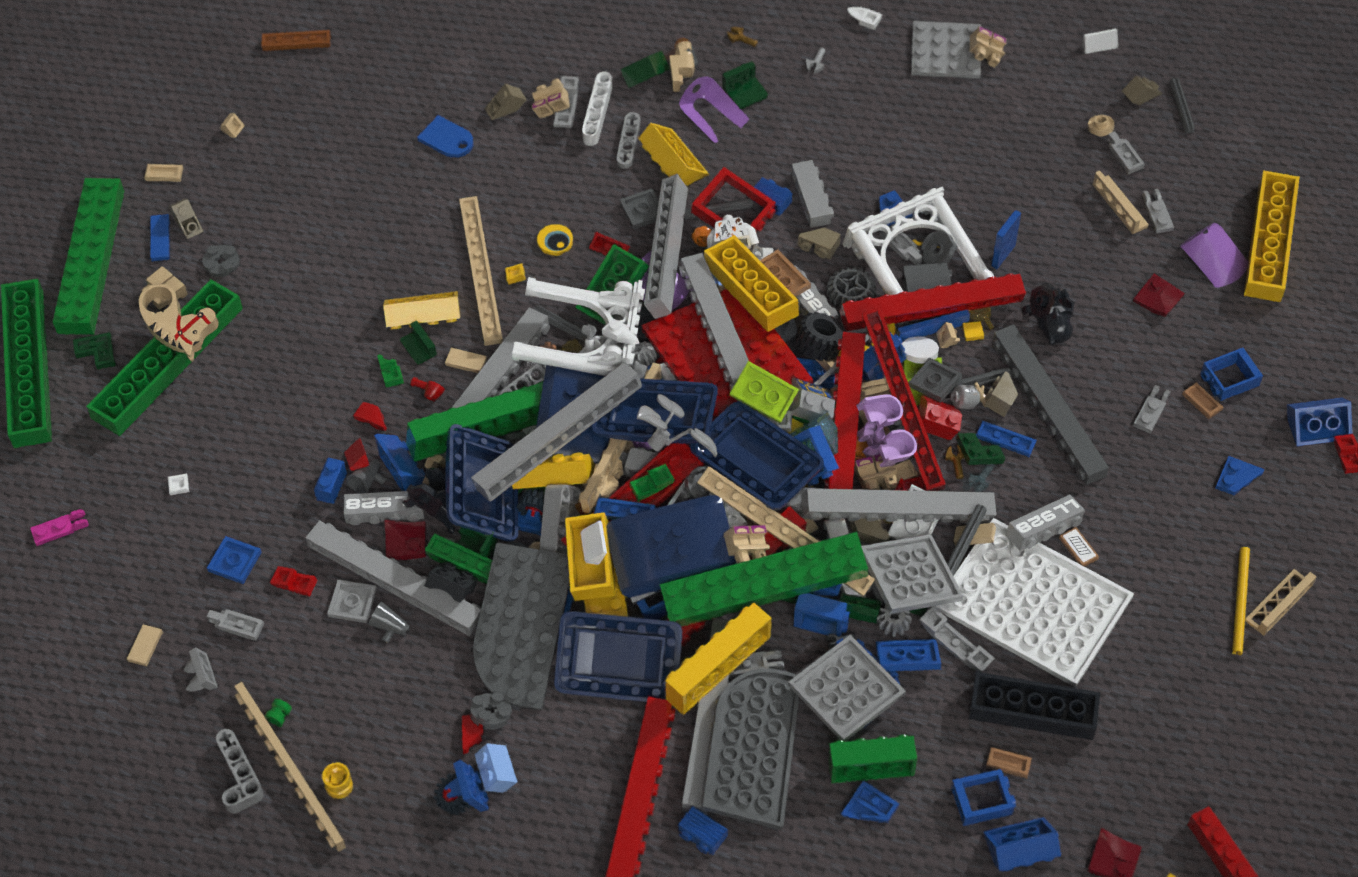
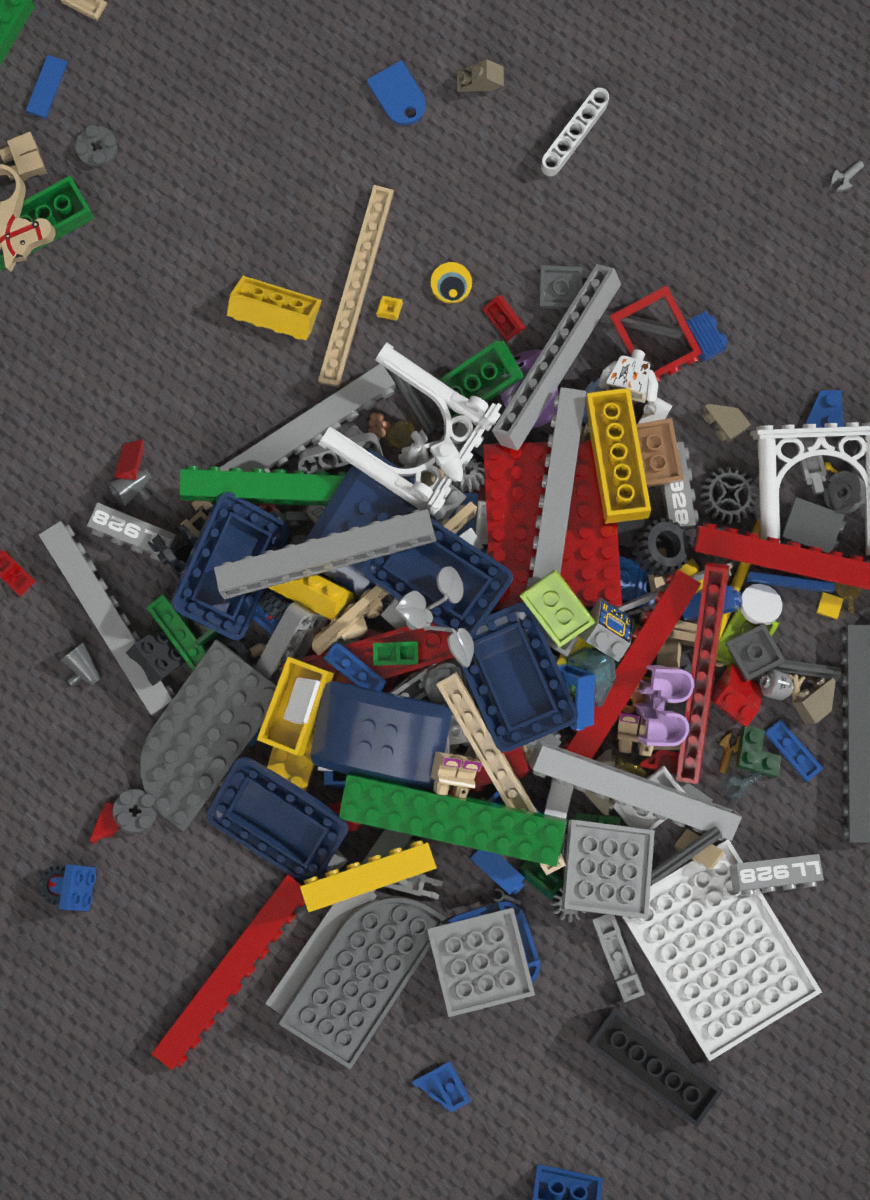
camera: 25 degrees right, 25 degrees up
(185, 218) = (80, 75): dark tan slope -> none
(330, 480) = (92, 476): blue brick -> none
(352, 601) = (57, 622): light grey tile -> none
(370, 414) = (167, 414): red slope -> none
(390, 371) = (209, 370): green slope -> none
(398, 461) = (166, 490): blue slope -> none
(405, 539) = (138, 578): dark red plate -> none
(418, 344) = (251, 350): dark green panel -> none
(432, 389) = (239, 414): red bar -> none
(465, 360) = (291, 392): tan tile -> none
(495, 768) = (110, 877): light blue brick -> none
(550, 99) = (529, 98): tan hips -> none
(566, 117) = (546, 109): light grey slope -> none
(626, 140) = (591, 190): light grey beam -> none
(645, 69) = (653, 103): dark green panel -> none
(671, 153) = (626, 232): yellow slope -> none
(682, 63) = (699, 112): tan plate -> none
(700, 236) = (605, 355): orange plate -> none
(702, 831) = (273, 1037): blue brick -> none
(718, 98) = (714, 181): medium lavender piece -> none
(740, 37) = (779, 103): pearl gold bar -> none
(743, 85) = (748, 177): dark green bracket -> none
(811, 193) = (749, 354): light grey brick -> none
(872, 759) = (466, 1047): green brick -> none
(908, 655) = (562, 949): blue tile -> none
(947, 335) = (798, 600): tan tile -> none
(970, 817) = (531, 1129): blue window -> none
(1009, 762) = (599, 1107): medium nougat tile -> none
(1078, 547) = (797, 910): tile -> none

